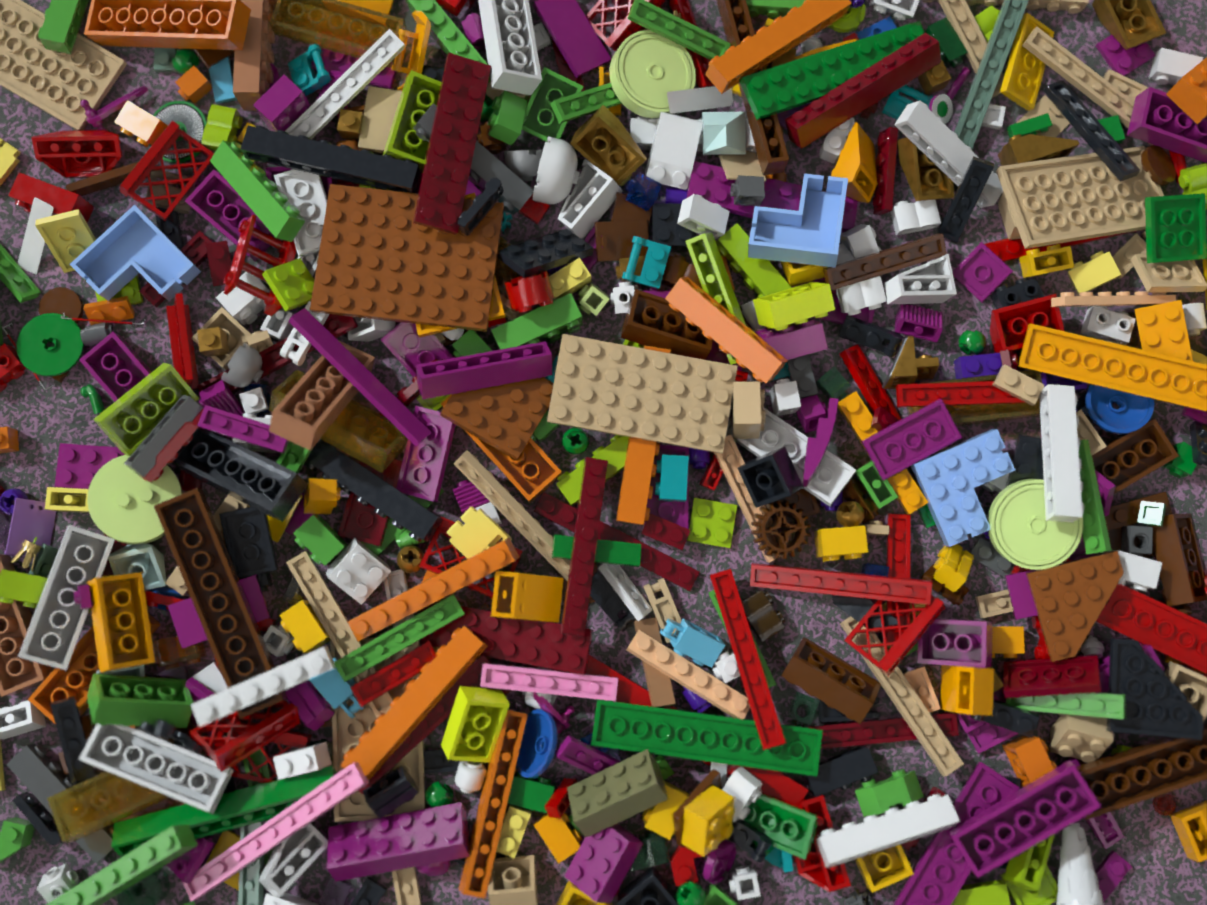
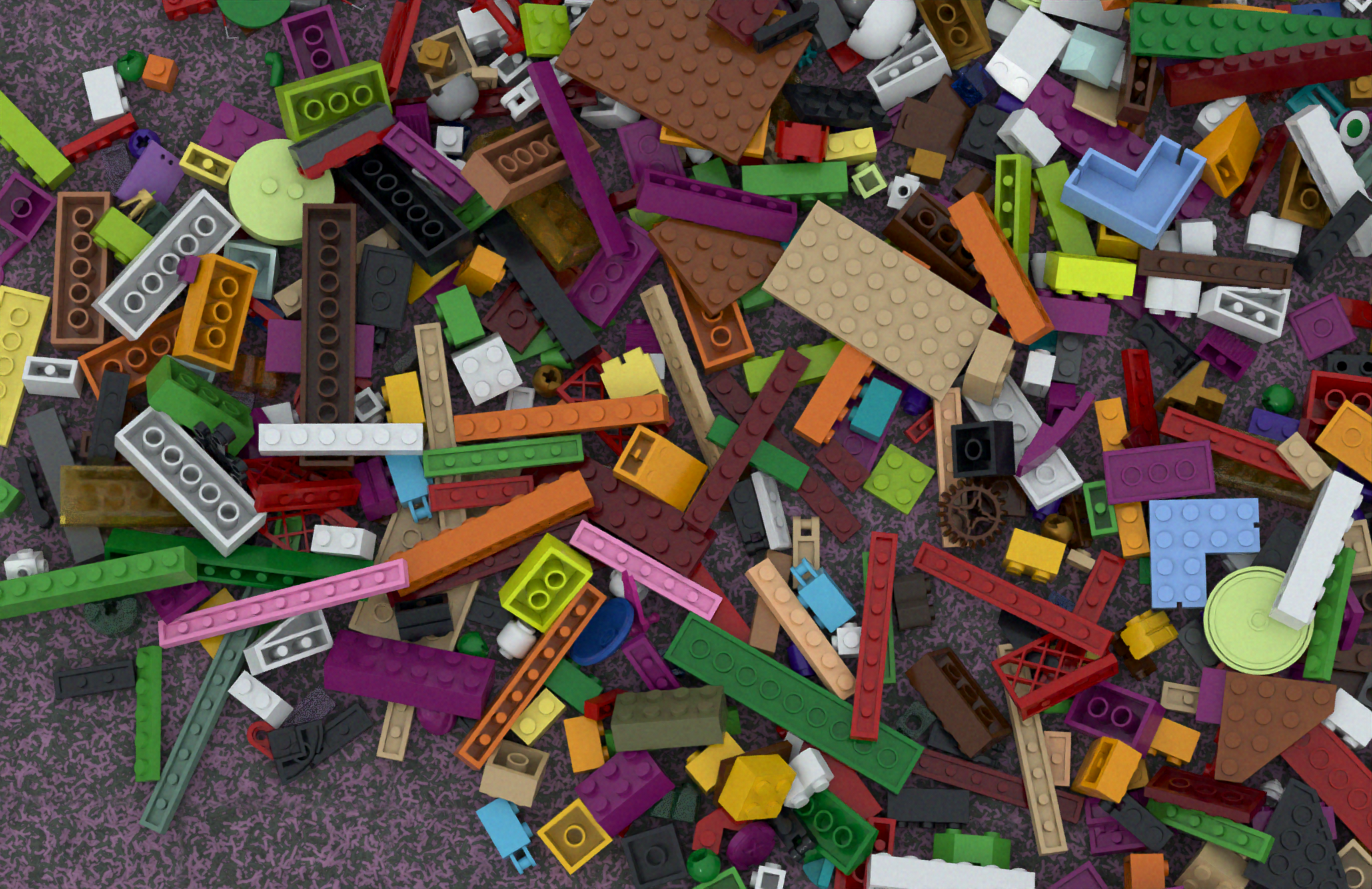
camera: 25 degrees right, 5 degrees down
(567, 443) = (785, 318): green piece -> none
(653, 265) = (951, 169): teal plate -> none
(748, 190) = (1090, 128): dark grey brick -> none
(833, 384) = (1100, 381): clear green brick -> none

